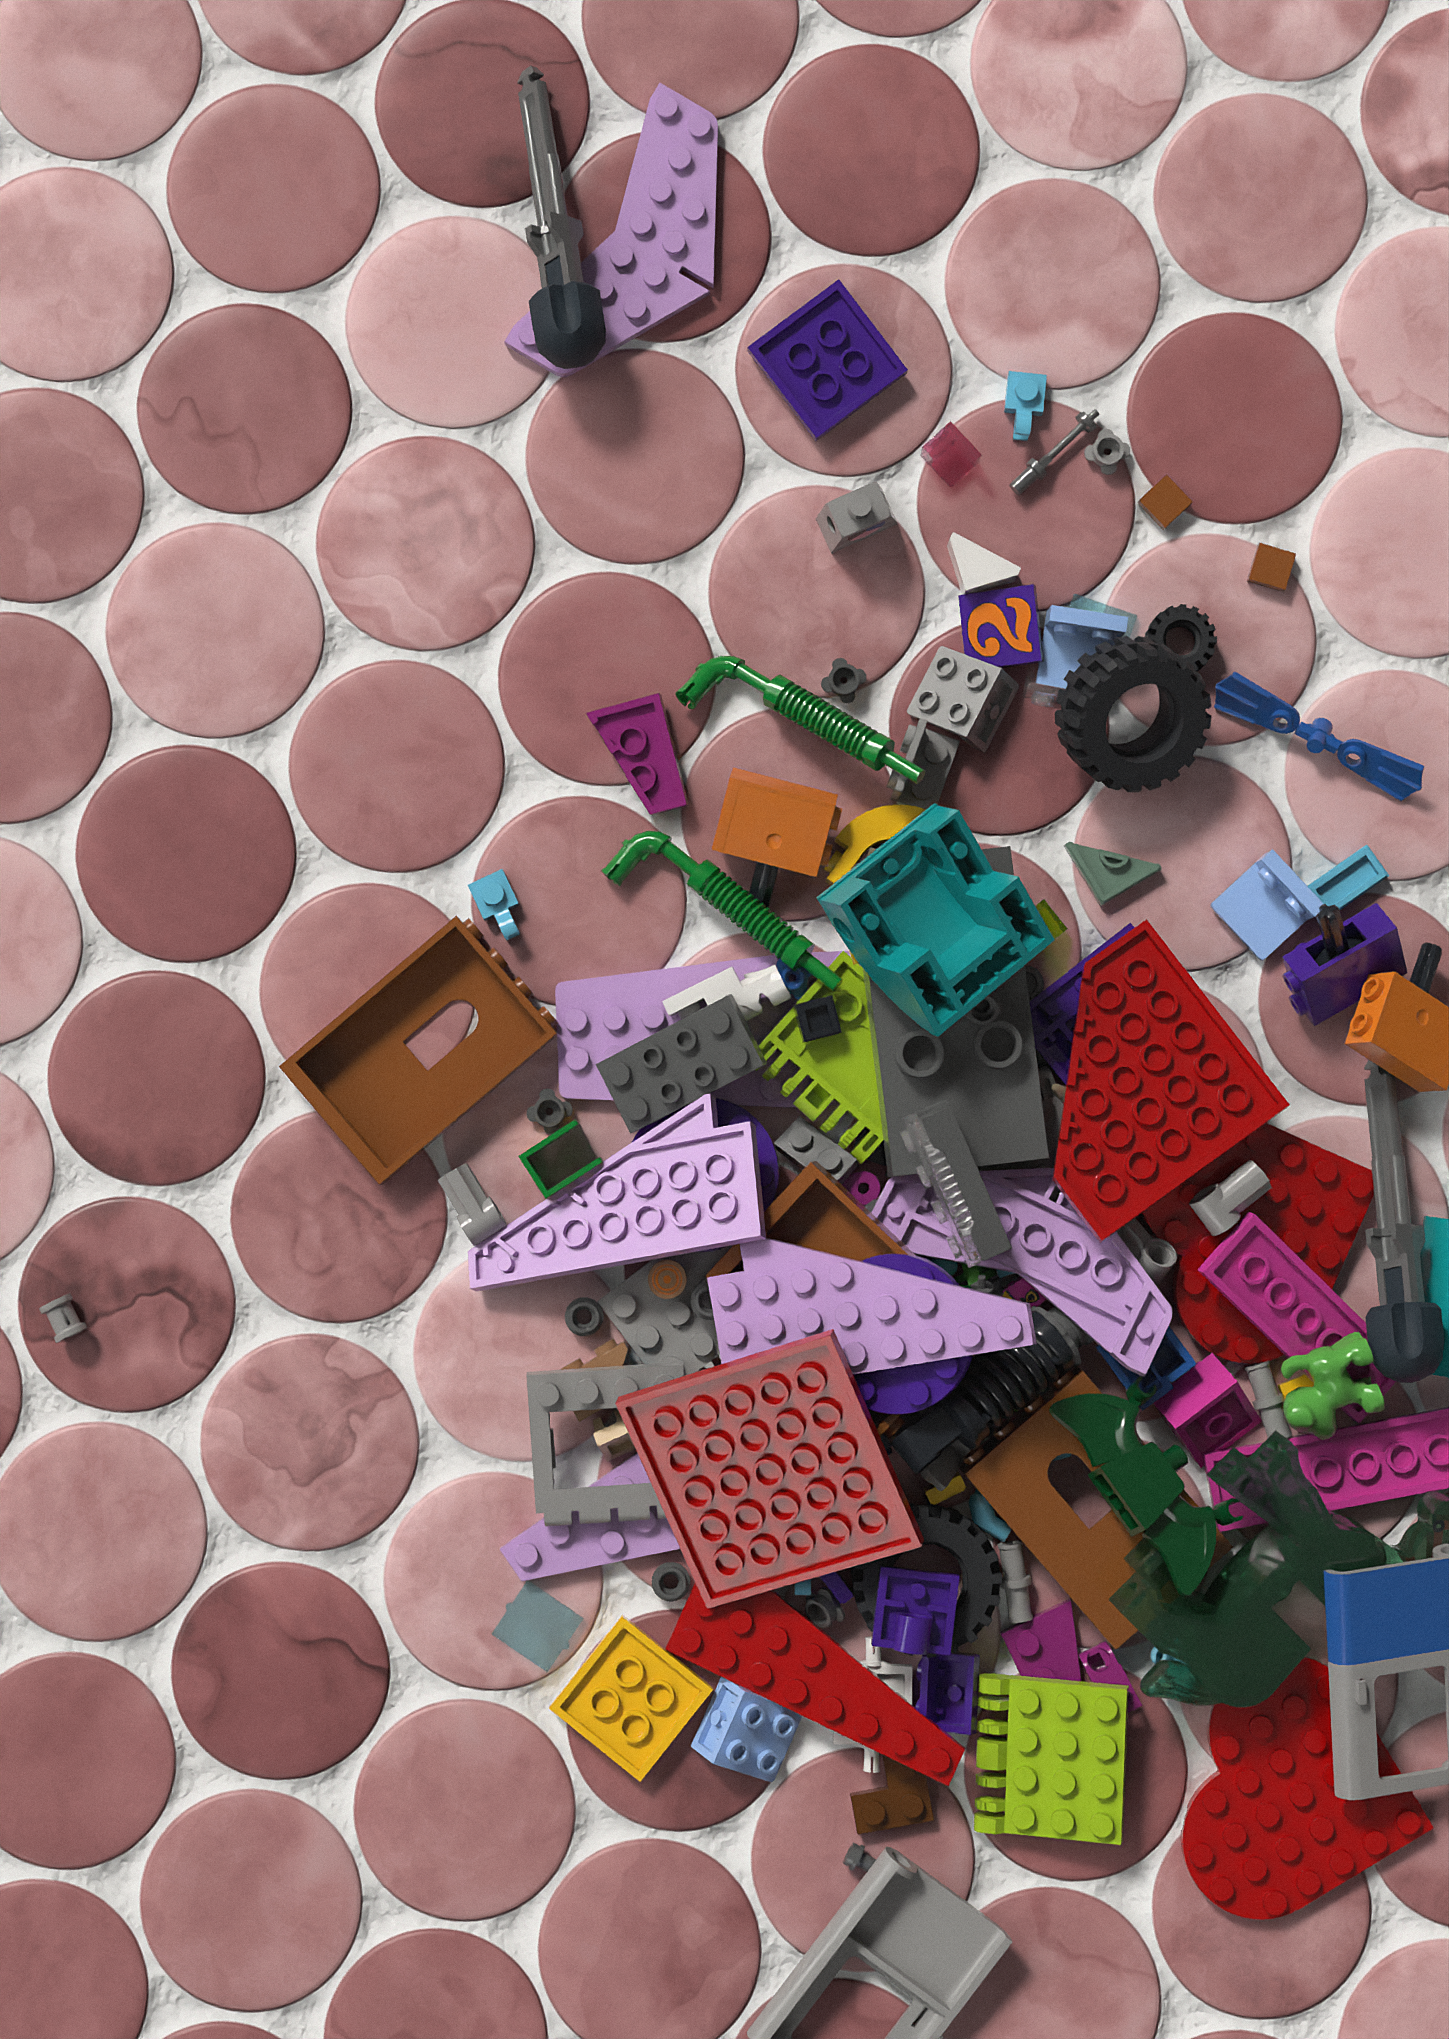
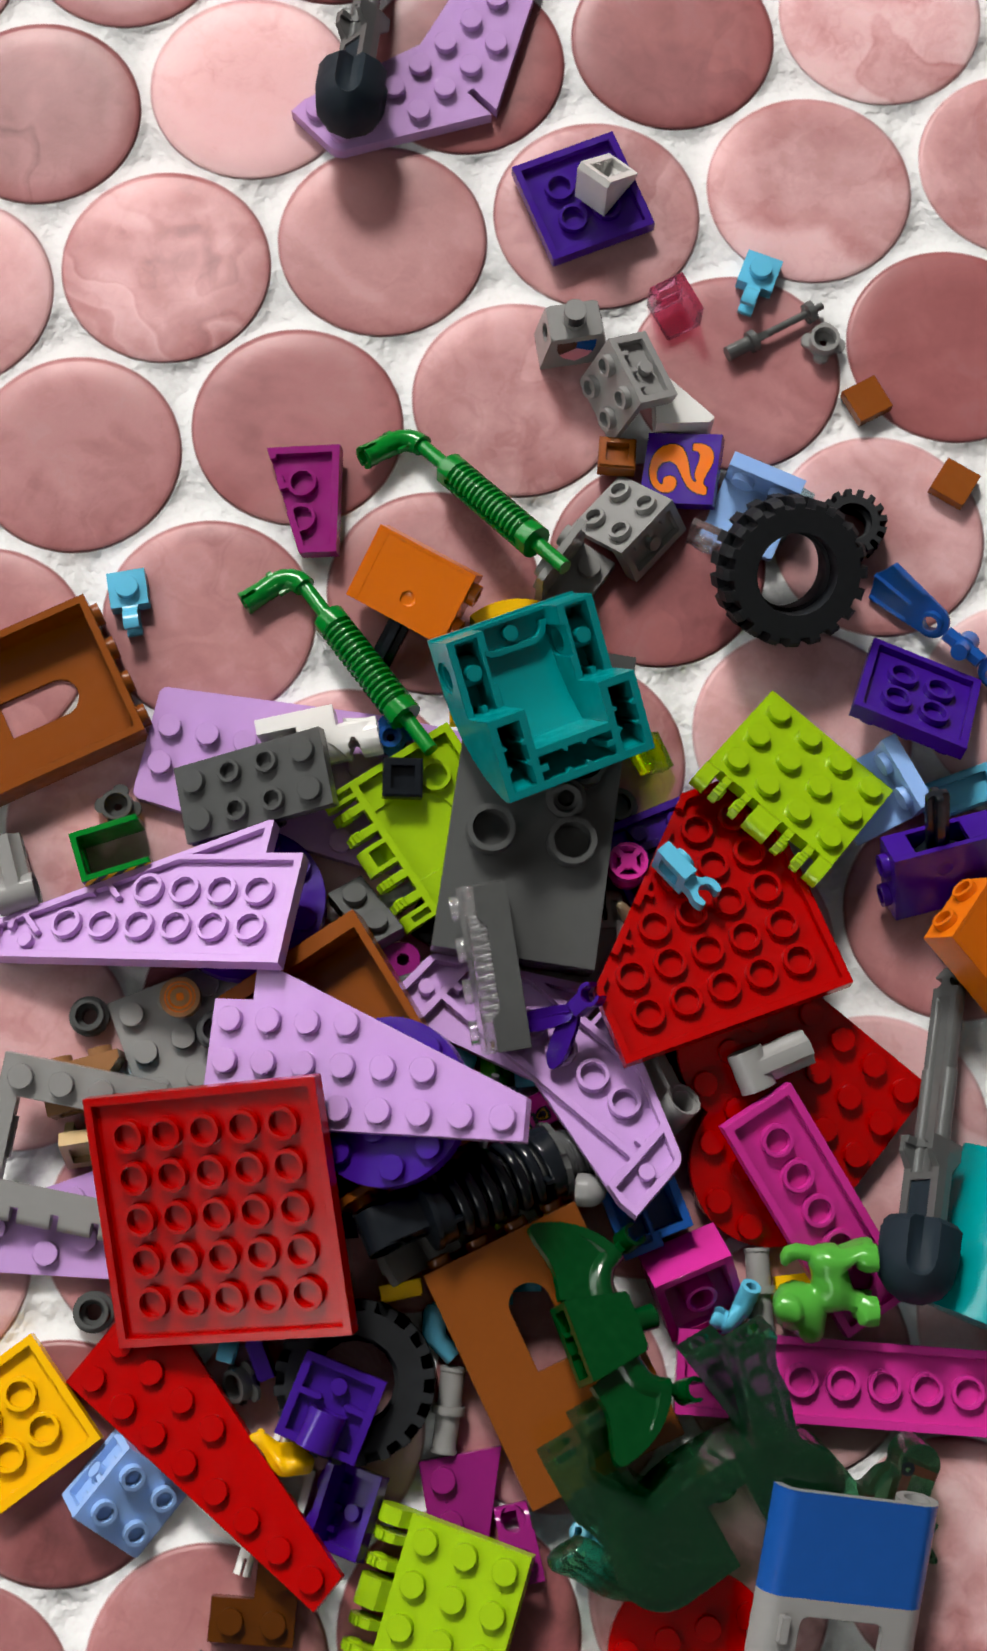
camera: 15 degrees right, 10 degrees down
(847, 341) = (602, 181): none -> white slope
(854, 678) = (521, 471): dark grey plate -> none
(882, 1663) = (284, 1458): none -> yellow animal
(925, 556) = (624, 381): none -> light grey bracket
(932, 628) = (616, 456): none -> dark orange tile
(1035, 1213) = (565, 1021): none -> dark purple piece
(1055, 1039) = (627, 857): none -> dark pink wheel
(1093, 1358) = (589, 1190): none -> light grey hinge
(1103, 1044) = (679, 872): none -> medium azure plate
(1108, 872) = (718, 716): sand green tile -> none
(1189, 923) = (794, 784): none -> lime hinge
(1255, 1425) = (740, 1308): none -> medium azure arm
(1285, 805) = (916, 698): none -> dark purple plate

